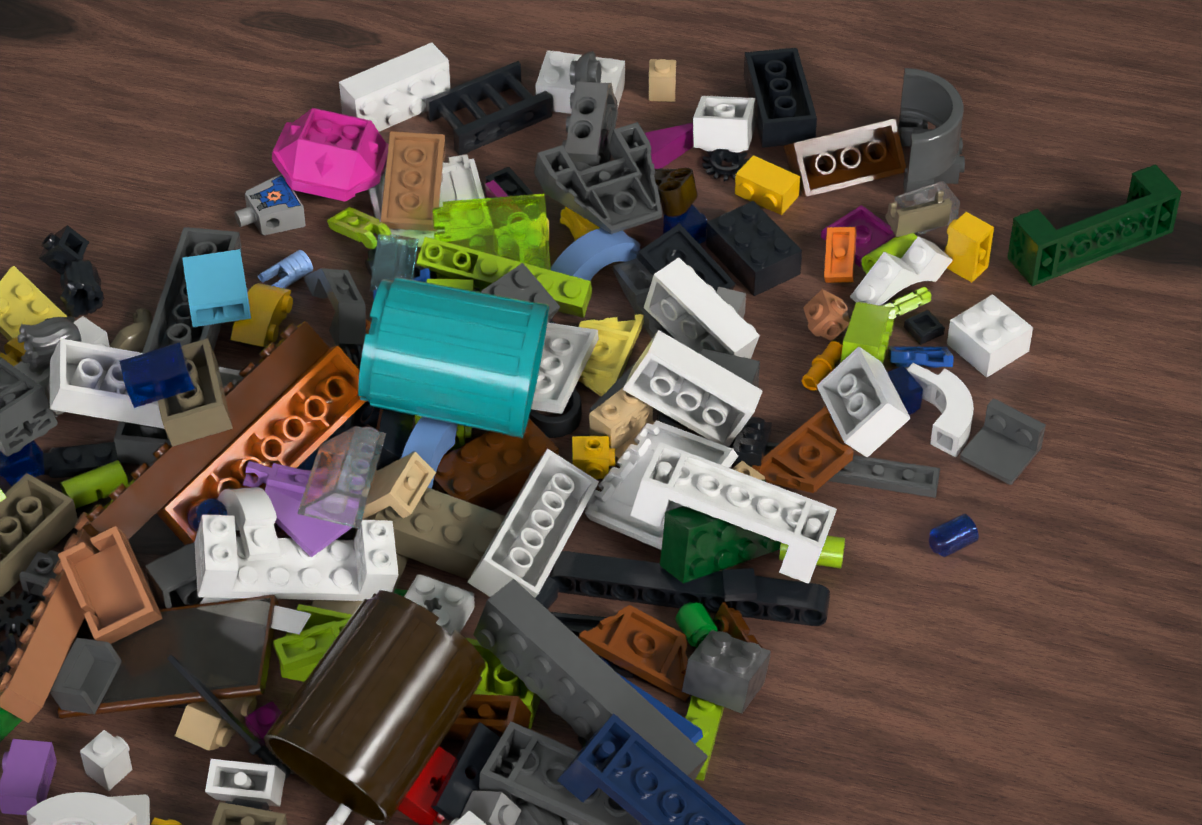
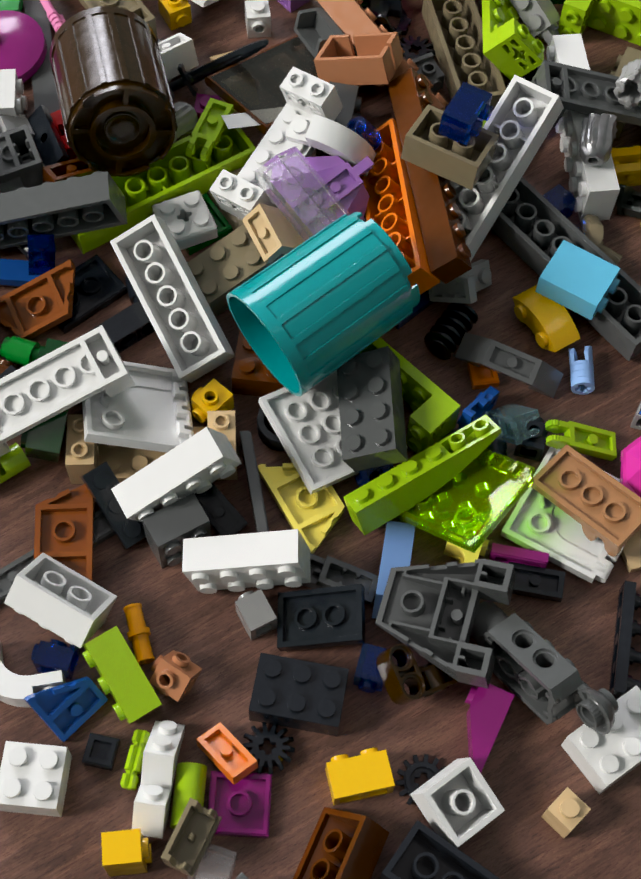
camera: 130 degrees right, 15 degrees up
(819, 244) = (277, 754): none -> black gear

